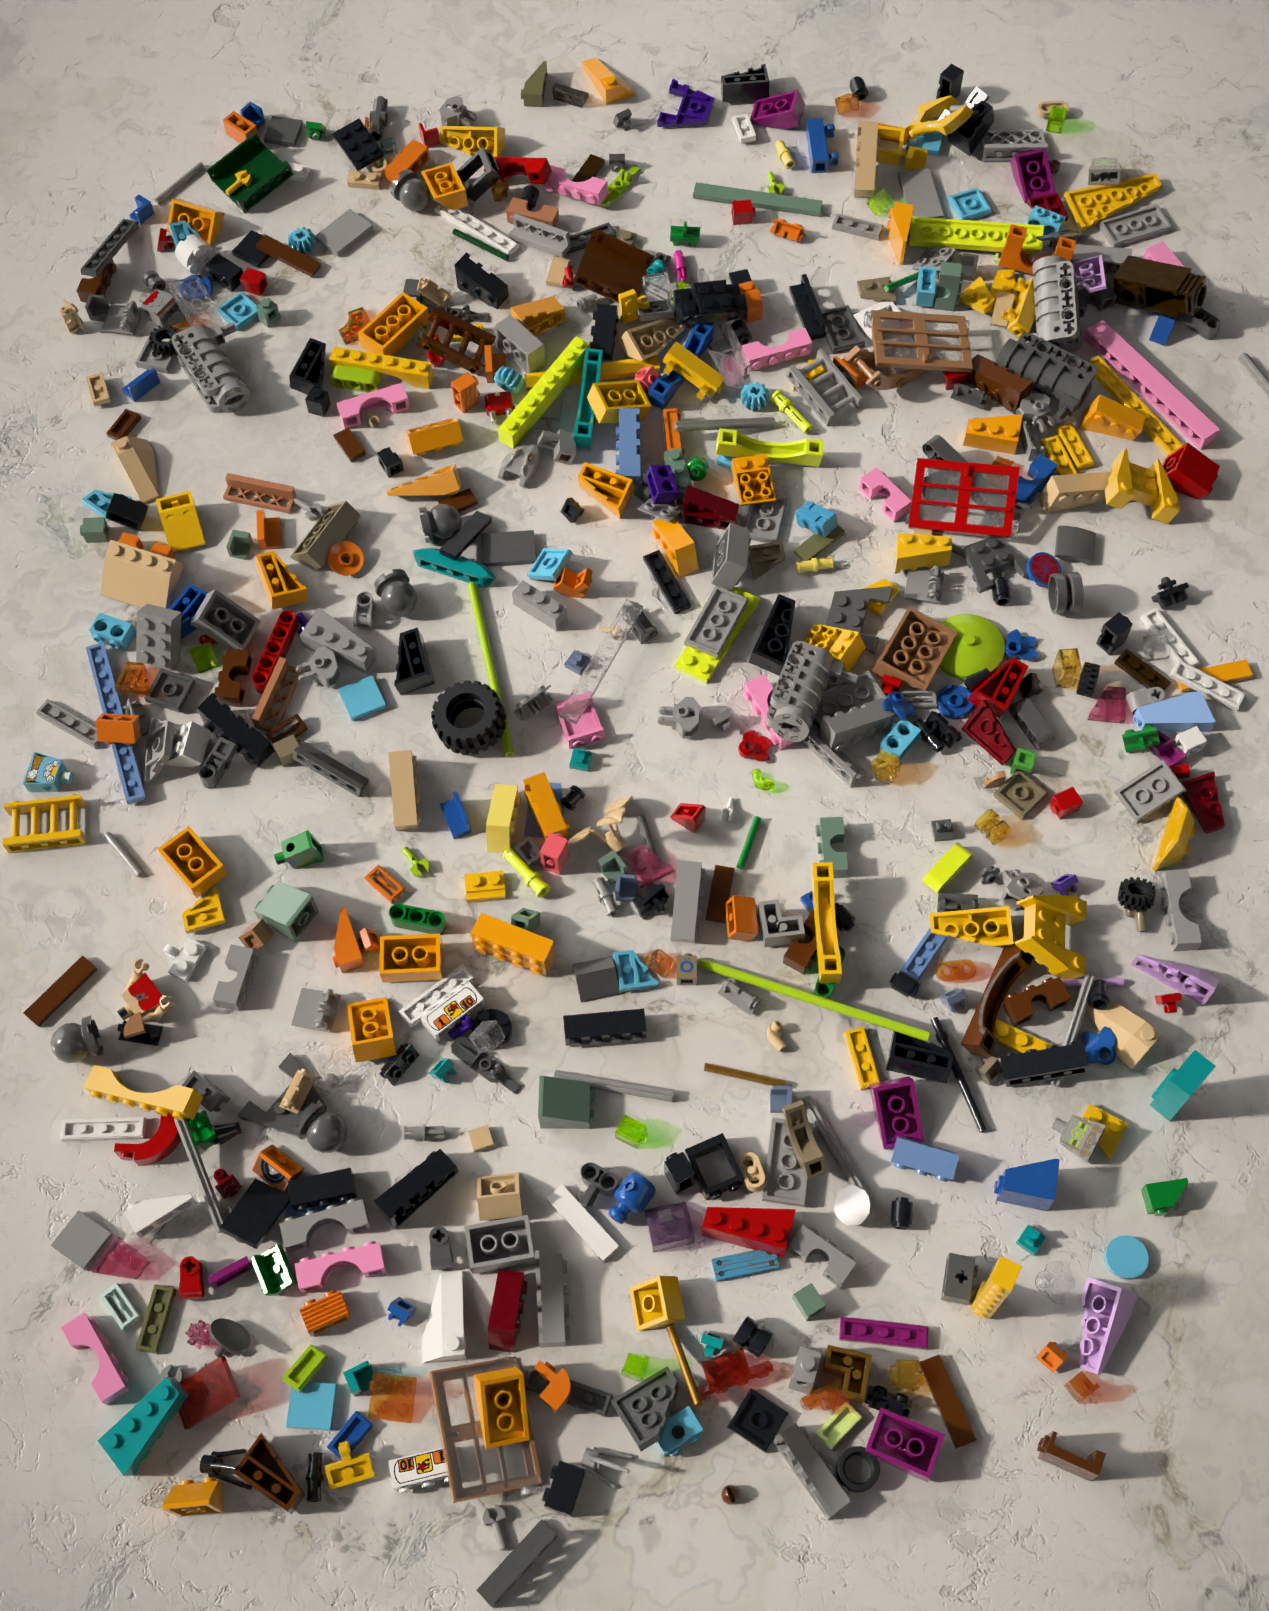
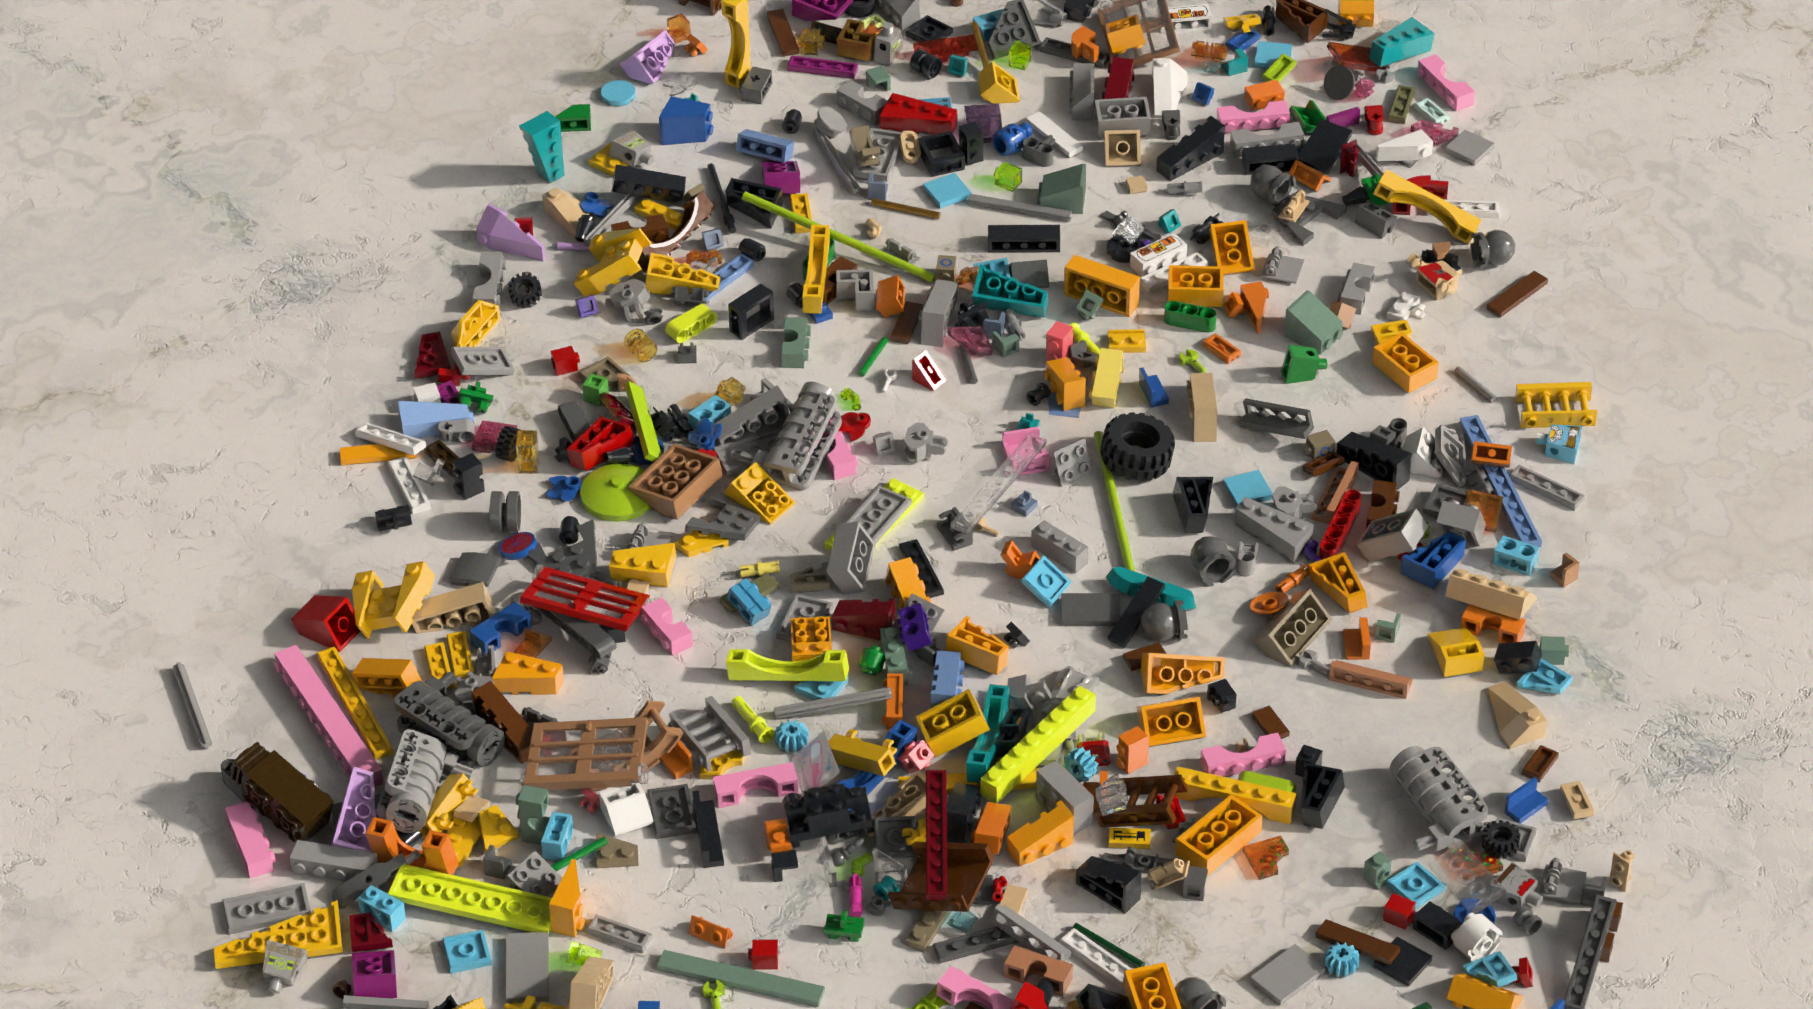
camera: 175 degrees left, 20 degrees down
(69, 616) = (1566, 572): none -> medium nougat panel
(323, 590) = (1292, 579): none -> orange pin
(480, 332) = (1112, 795): none -> clear slope
(568, 408) = (1012, 730): none -> black slope
(578, 315) = (992, 826): none -> orange brick
(613, 838) = (1001, 330): tan plant -> none
(613, 924) = (1007, 293): none -> teal wedge
(620, 279) = (936, 835): none -> dark red tile
(700, 1109) = (947, 190): none -> medium azure tile
(773, 643) = (817, 500): black wedge -> none
(885, 874) = (738, 321): none -> black window
(963, 718) = (643, 421): none -> lime tile

